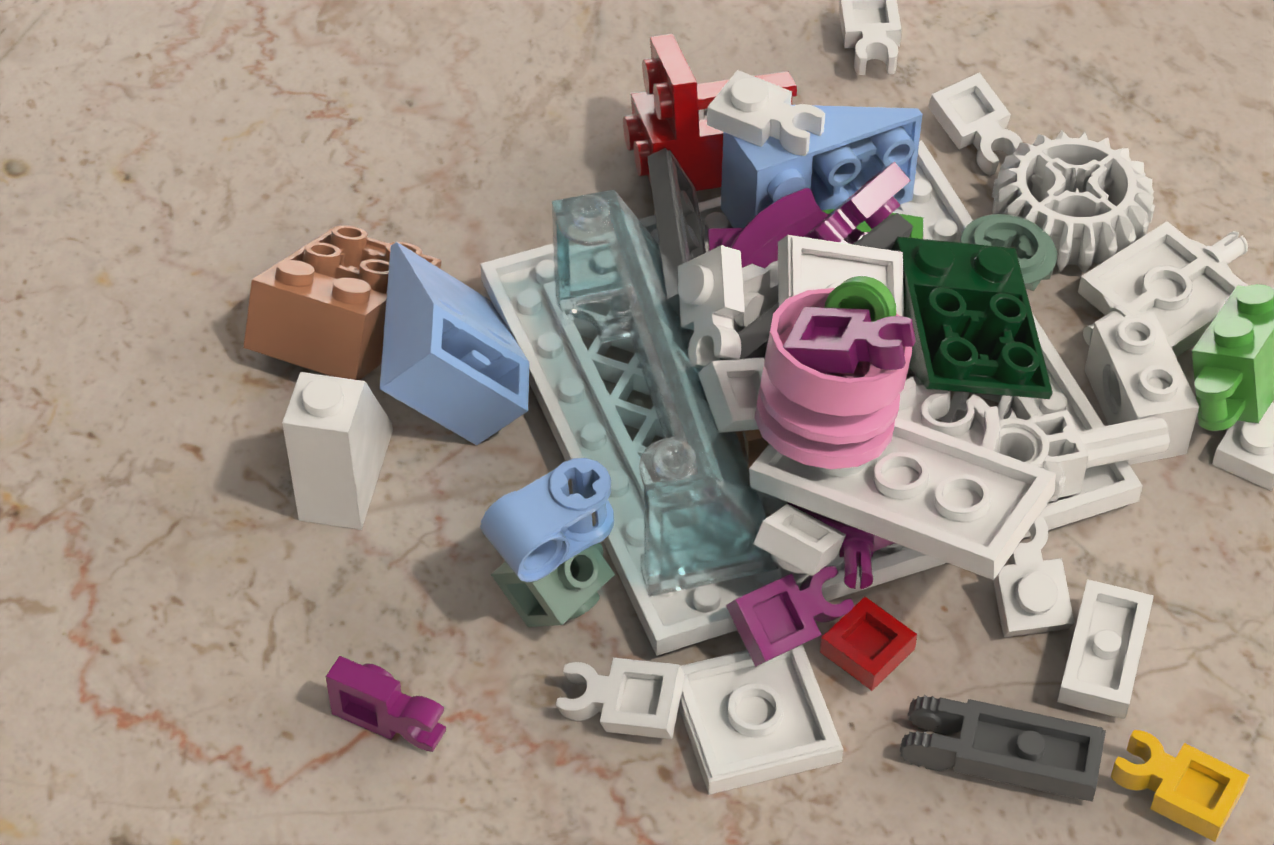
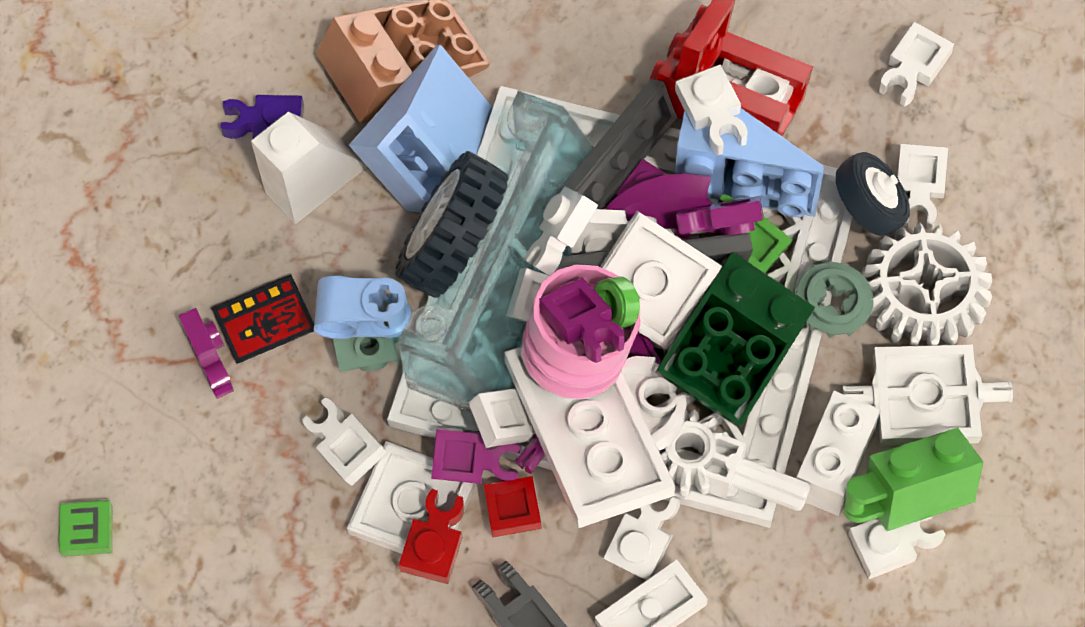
camera: 40 degrees right, 15 degrees up
(240, 441) = (261, 116): none -> dark purple plate
(418, 634) = (263, 319): none -> piece
(581, 377) = (451, 224): none -> black wheel
(822, 730) = (432, 545): none -> red plate
(959, 142) = (872, 194): none -> black wheel

